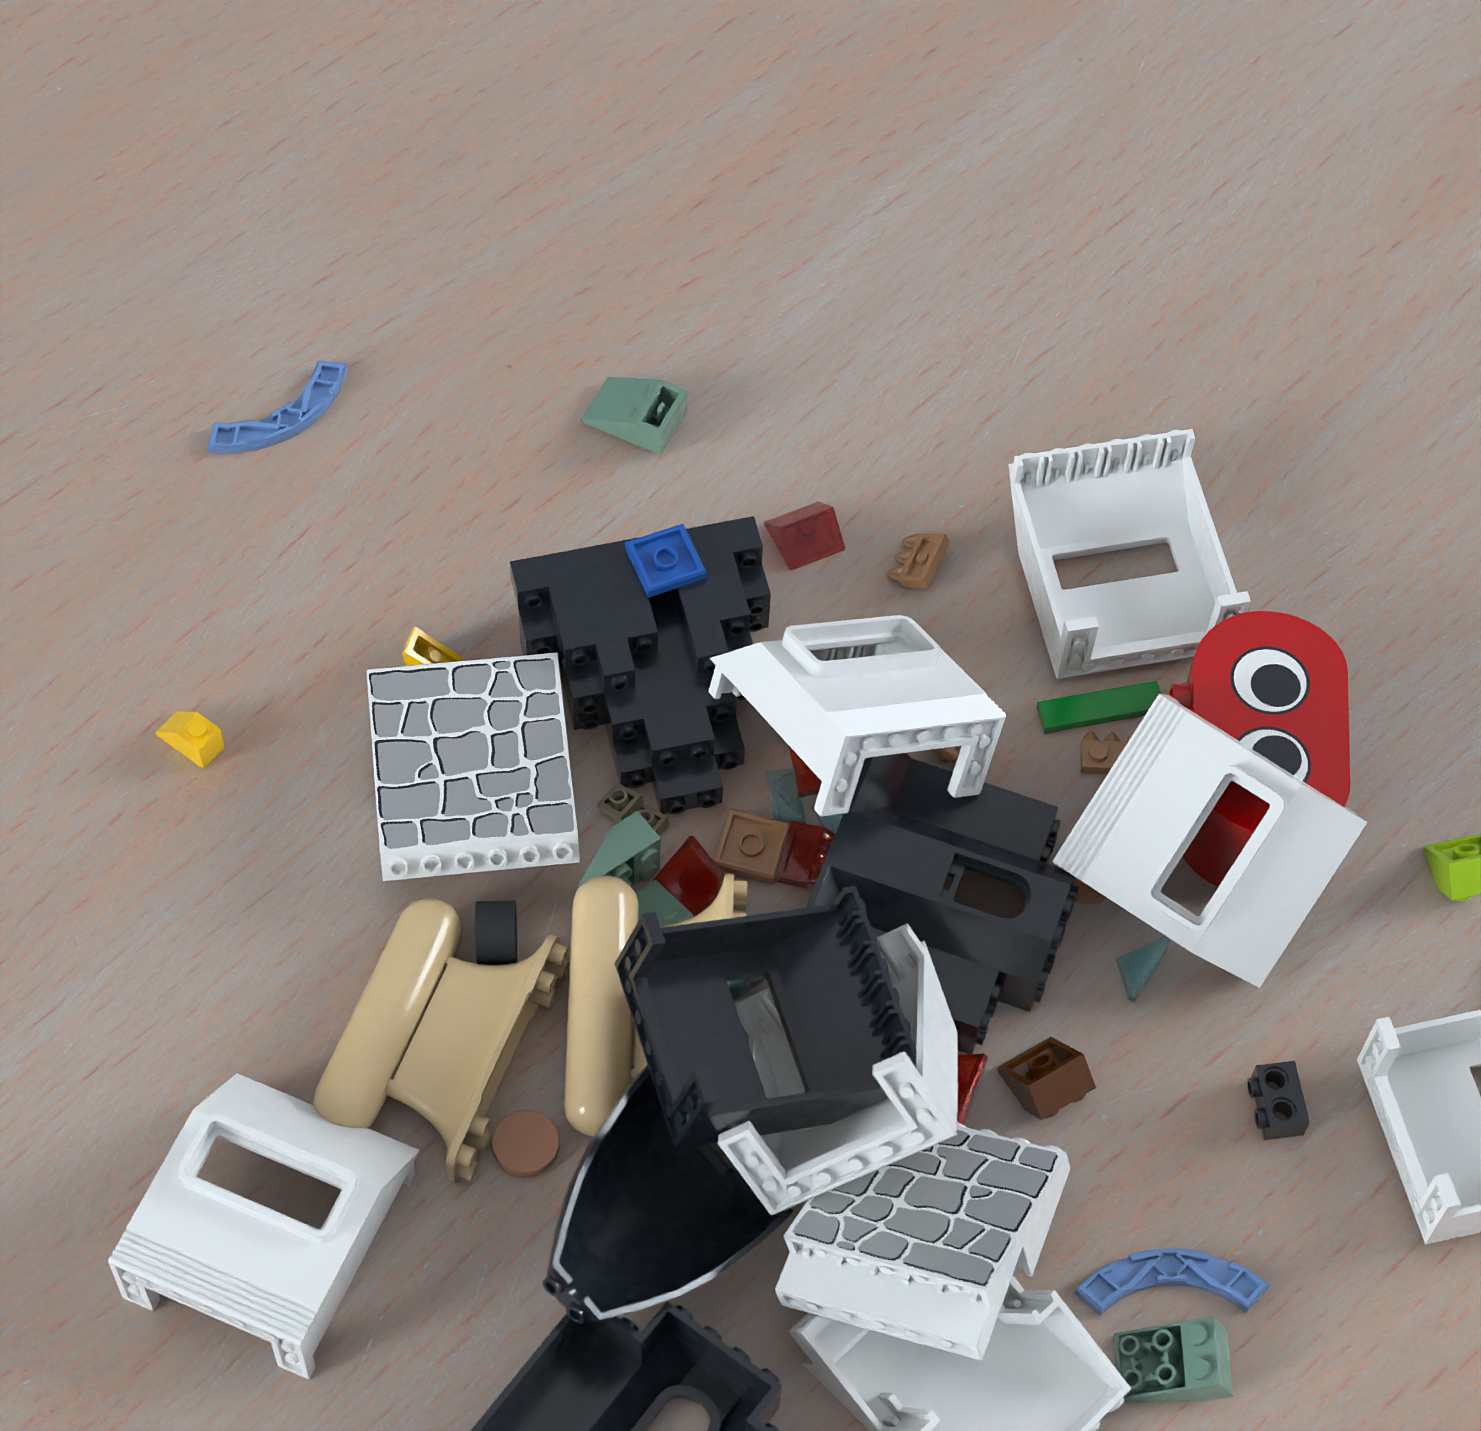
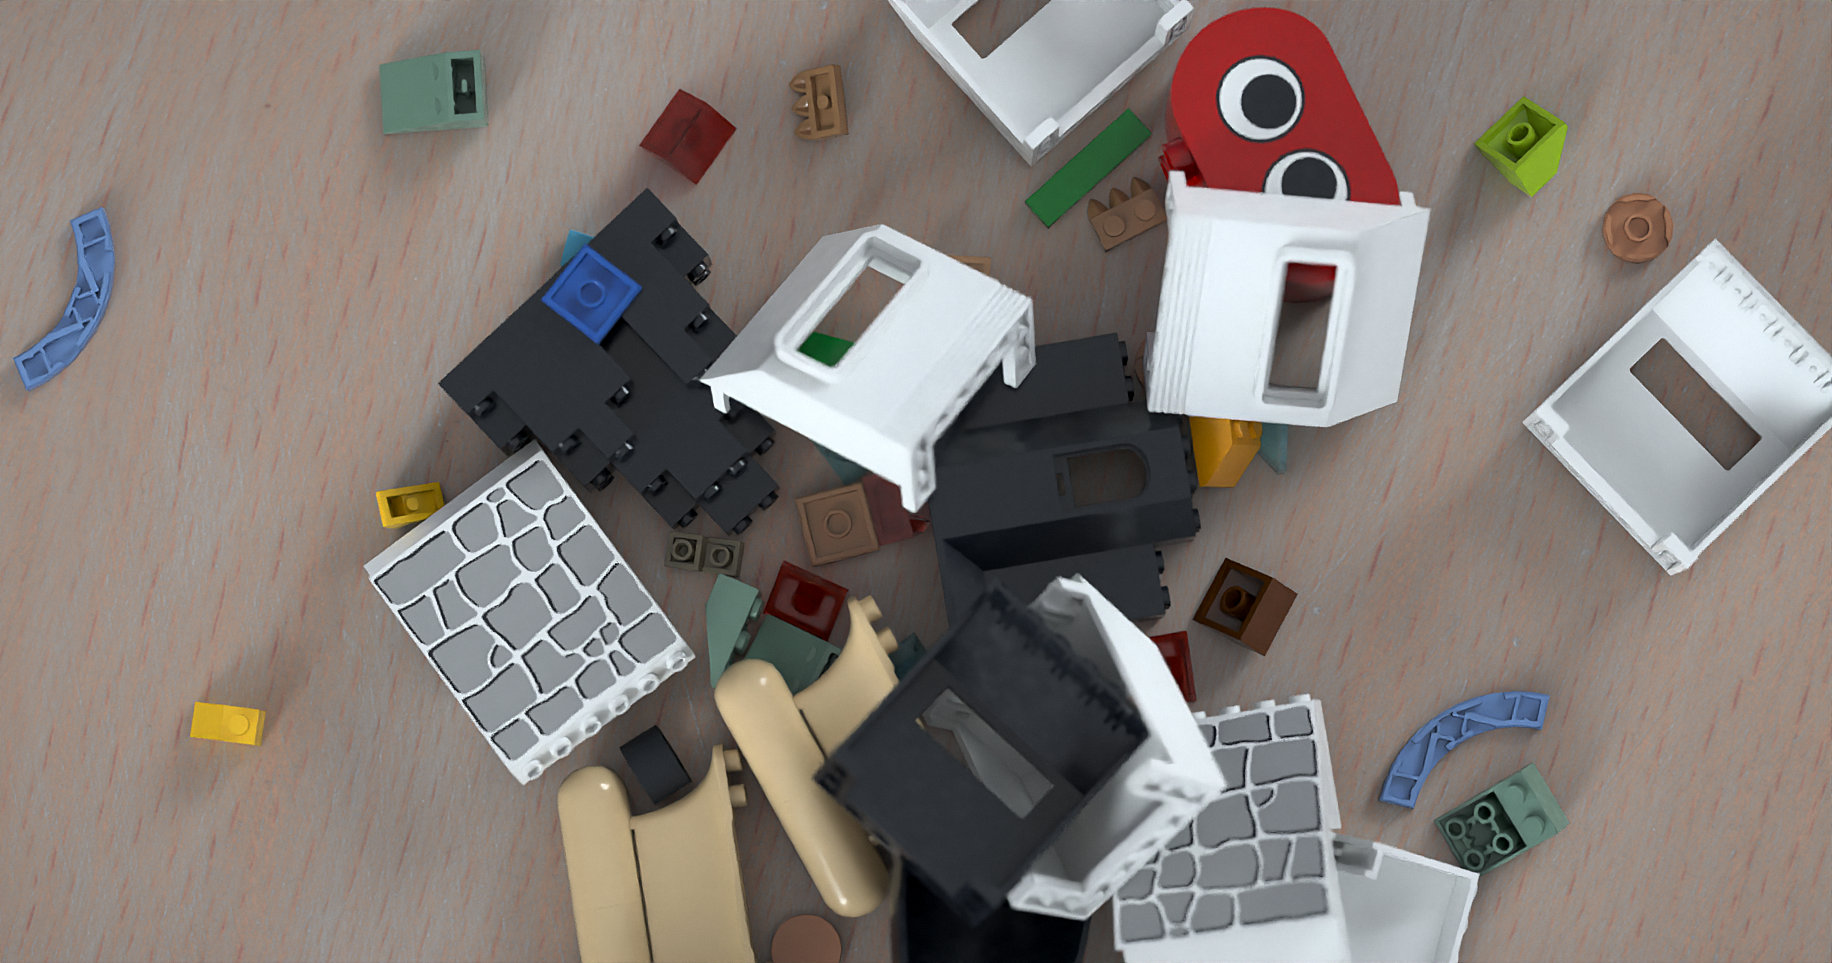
camera: 20 degrees left, 25 degrees up
(1098, 942) = (1223, 449): none -> light orange slope
(1286, 1100) = (1477, 499): black brick -> none

